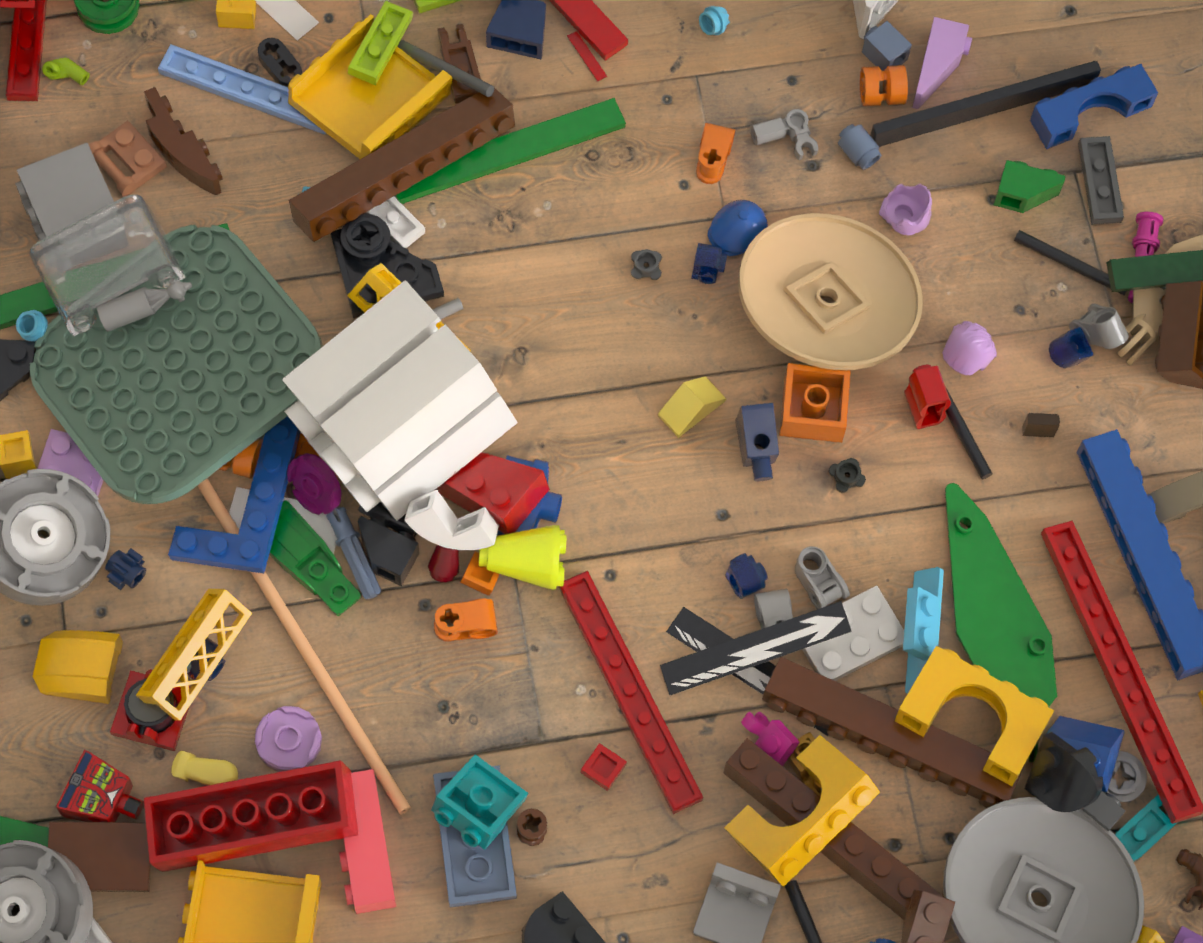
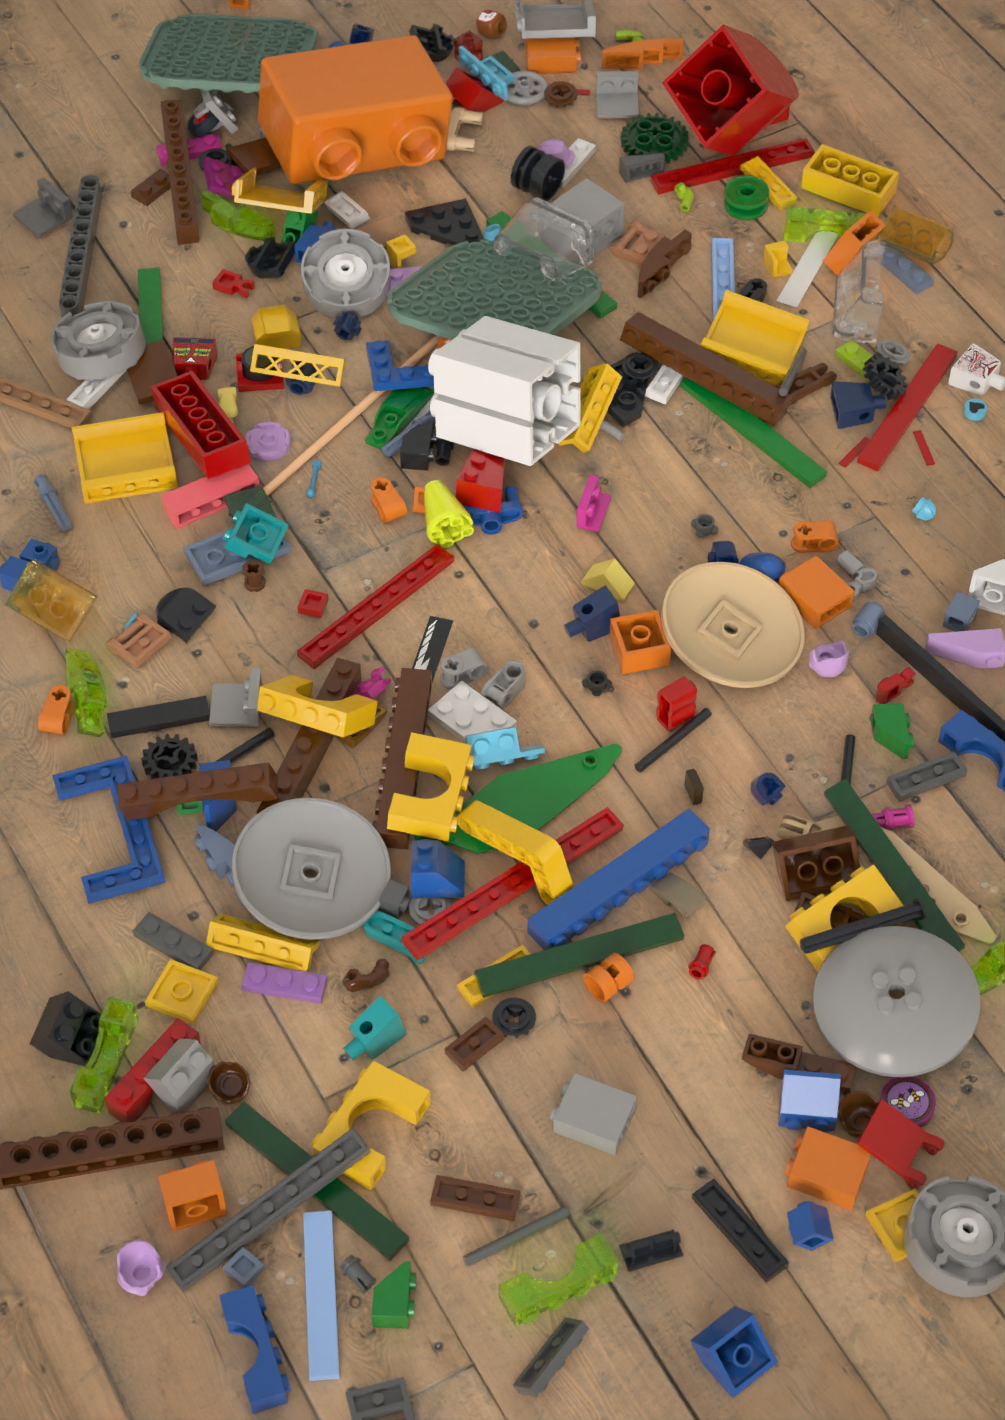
camera: 75 degrees right, 15 degrees down
(139, 304) = (523, 262): light grey wheel -> none
(355, 690) = (316, 465): none -> dark azure hinge
(380, 42) = (792, 332): lime plate -> none
(407, 797) = (254, 496): none -> clear green piece
(438, 524) = (439, 454): white brick -> none
(444, 564) = (425, 474): dark red cone -> none
(572, 379) = (592, 506): none -> dark pink bracket
(746, 575) = (488, 641): clear blue plate -> none
(755, 648) = (432, 656): black sticker -> none
(799, 183) = (817, 591): none -> orange brick
(894, 85) = (926, 616): orange wheel -> none
(967, 164) = (892, 686): none -> red plate
(969, 348) = (735, 726): lavender hair -> none
(1064, 776) = (404, 848): black slope -> none
(1083, 646) = (522, 843): none -> yellow beam
(1102, 327) = (794, 800): light grey piece -> none
(1137, 387) = (759, 845): none -> black slope

